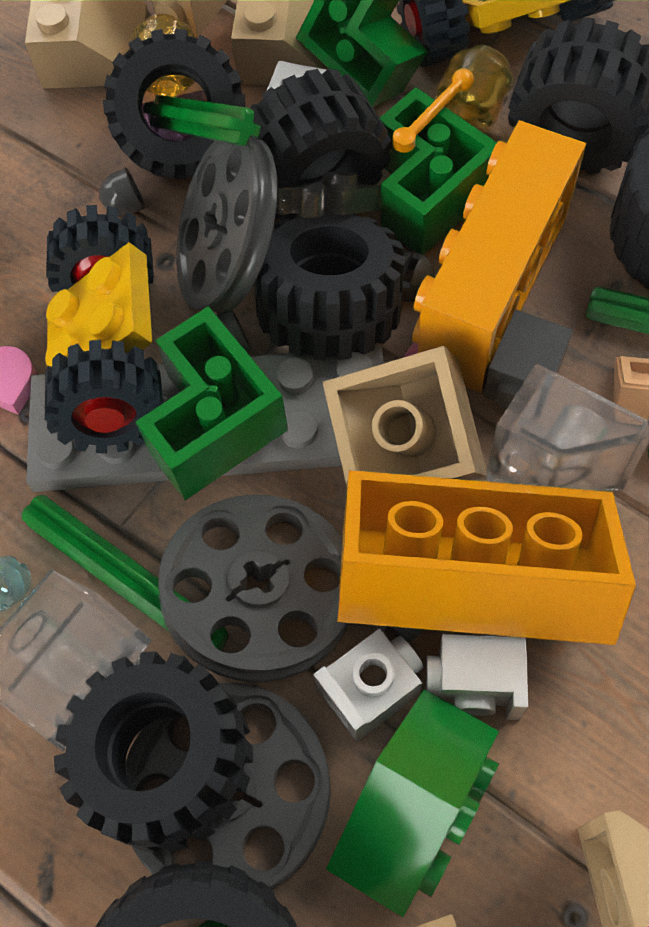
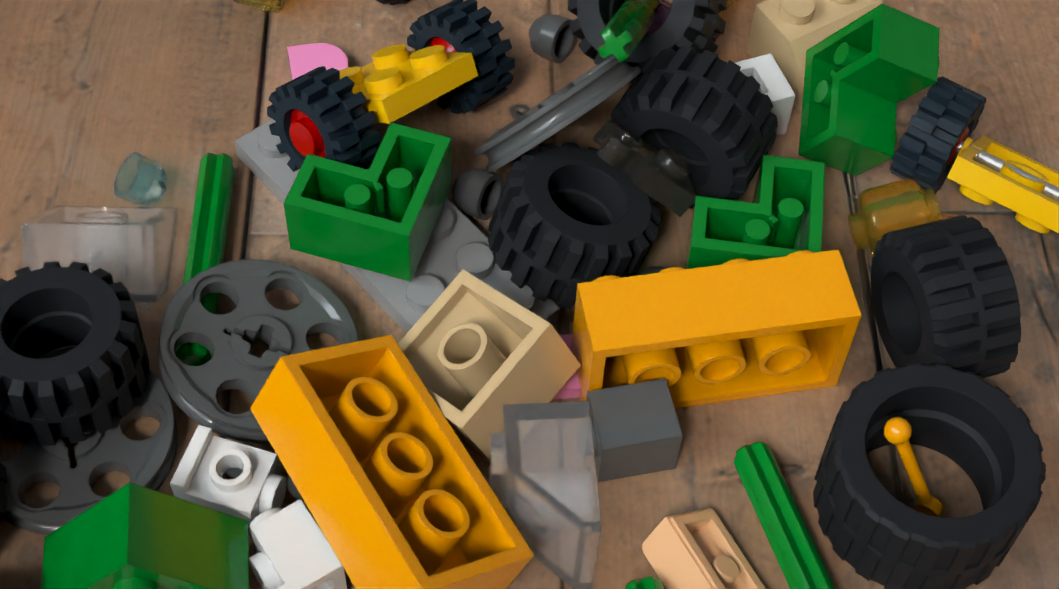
camera: 45 degrees right, 10 degrees down
(405, 137) = (757, 184): light orange hinge -> none

